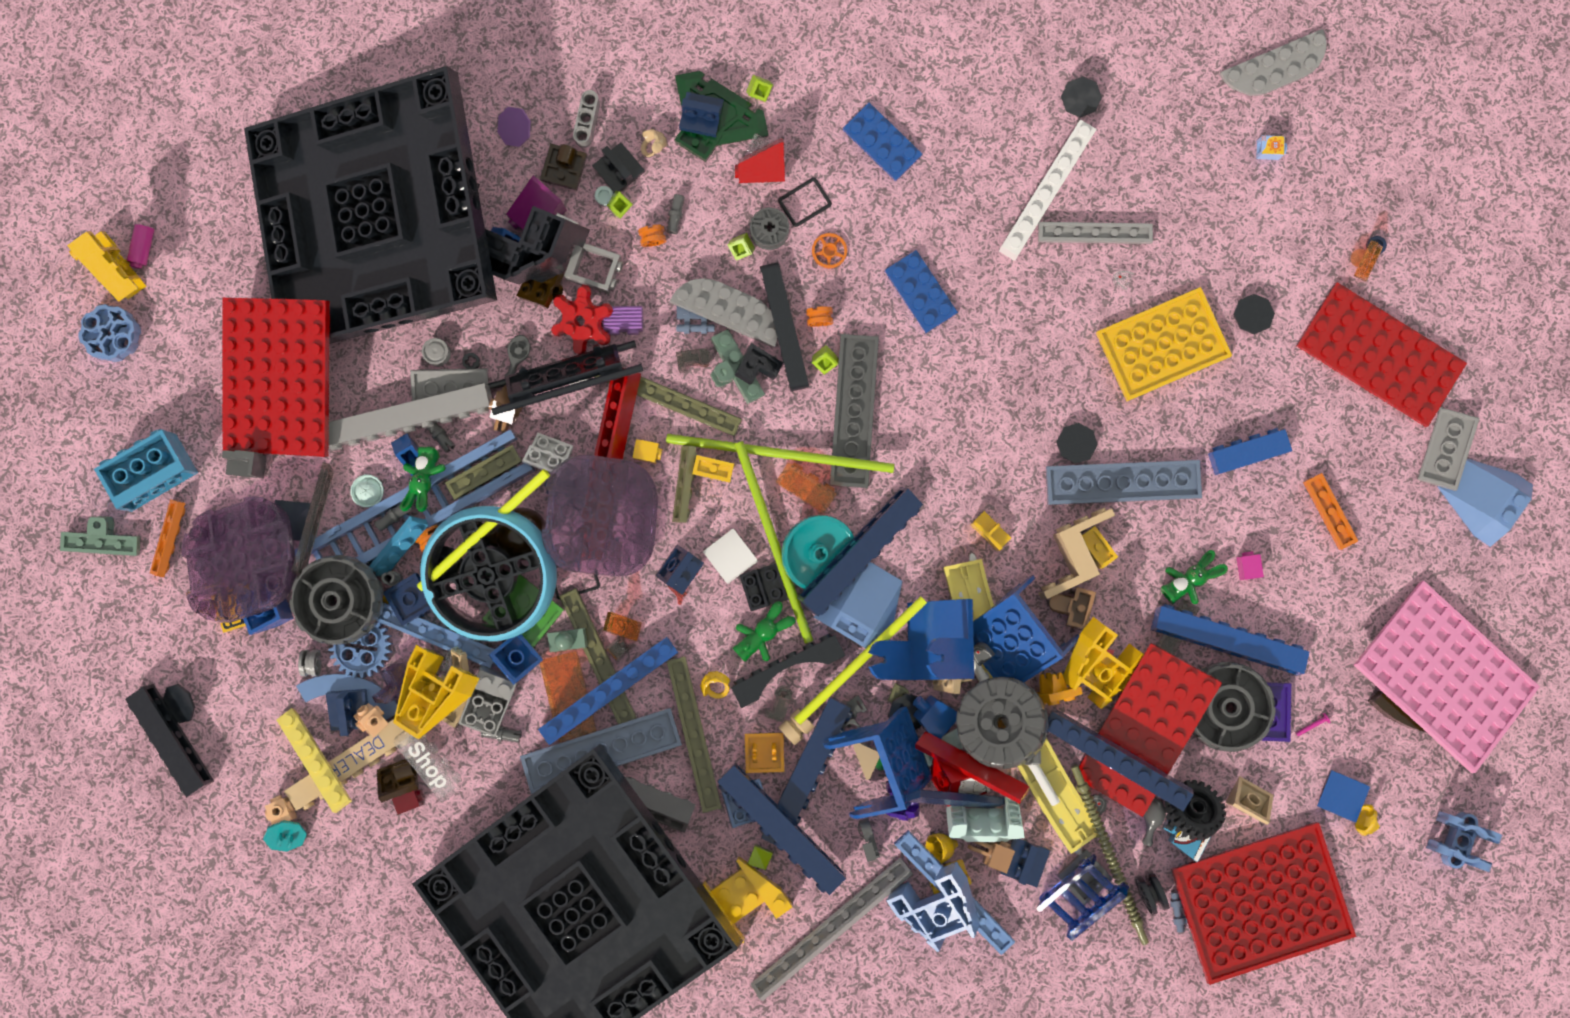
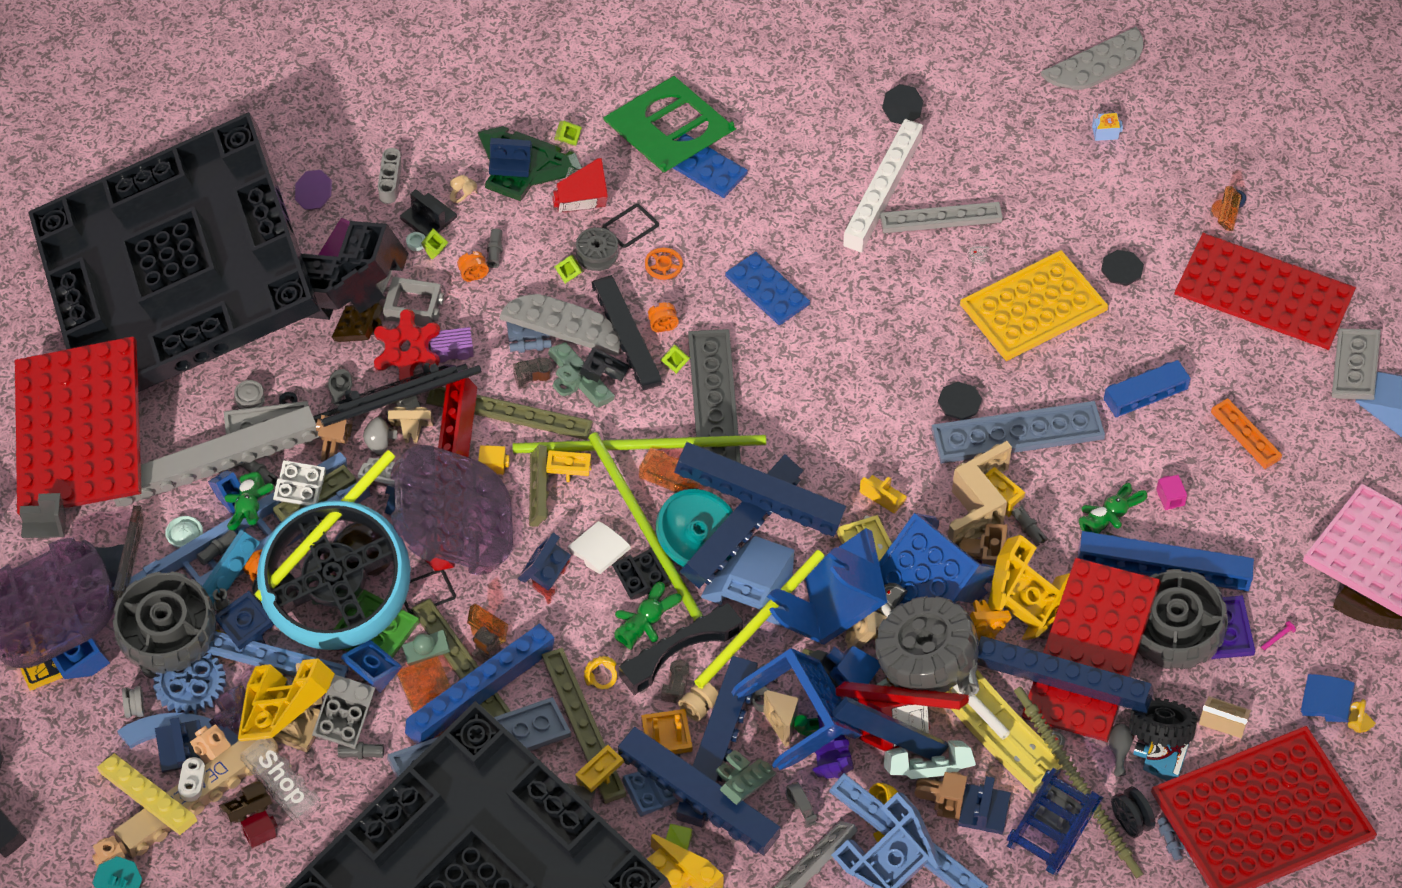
camera: 10 degrees left, 30 degrees down
(352, 753) = (192, 777): none -> white plate
(469, 464) = (299, 483): none -> white slope
(545, 413) = (377, 435): none -> light grey piece
(563, 166) = (371, 210): dark brown plate -> none
(577, 404) = (410, 421): none -> tan plate
(699, 794) = (599, 769): none -> yellow panel
(824, 821) = (744, 778): none -> sand green plate
(841, 118) = (650, 141): none -> green door
(880, 531) = (760, 489): none -> dark blue brick
(1115, 583) = (1029, 525): none -> dark grey pin

